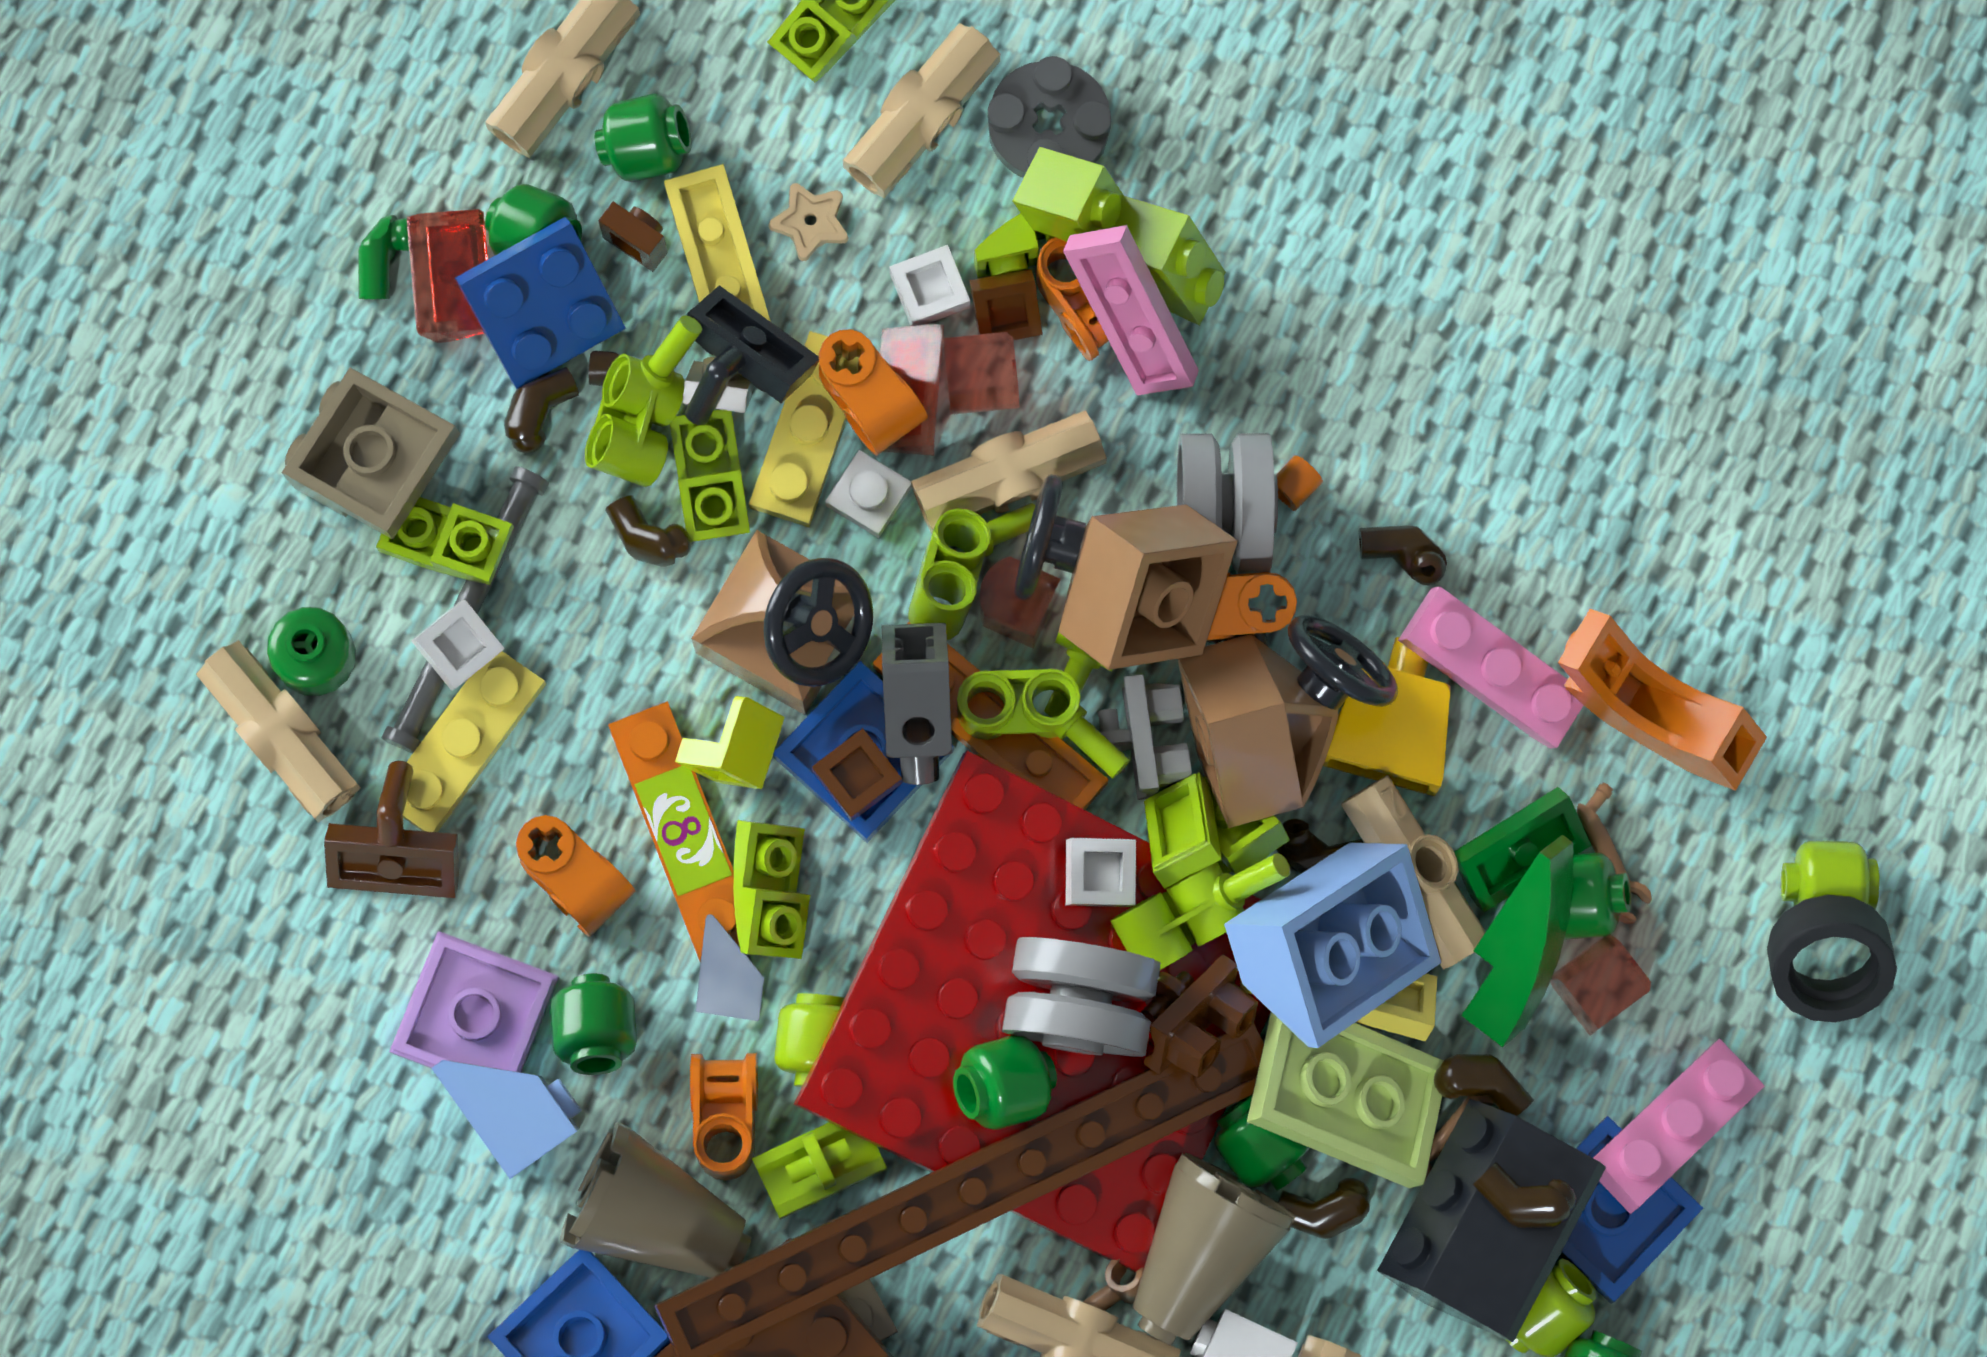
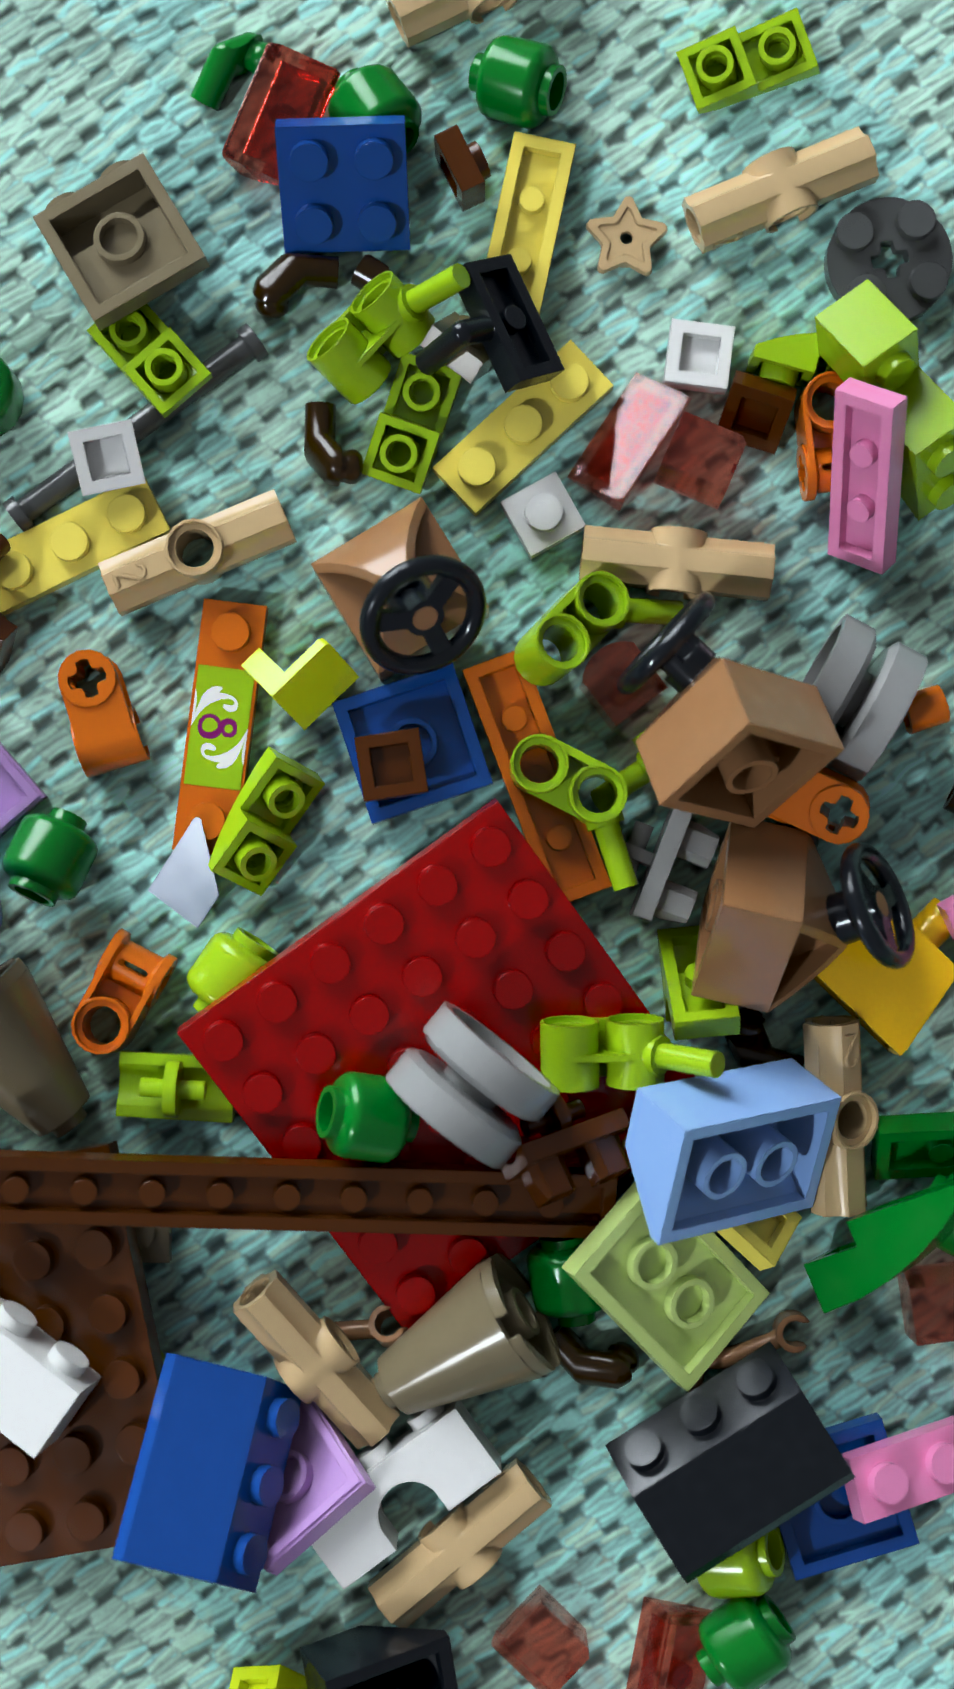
camera: 30 degrees right, 10 degrees up
(606, 653) = (158, 568): none -> tan piece
(874, 399) = (592, 432): orange piece -> none
(916, 698) = (478, 726): dark grey torso -> none
(1100, 872) = (554, 975): white plate -> none
(1182, 830) = (649, 973): lime tile -> none
(1481, 1077) = (793, 1329): dark brown arm -> none
(1526, 1205) = (764, 1481): dark brown arm -> none

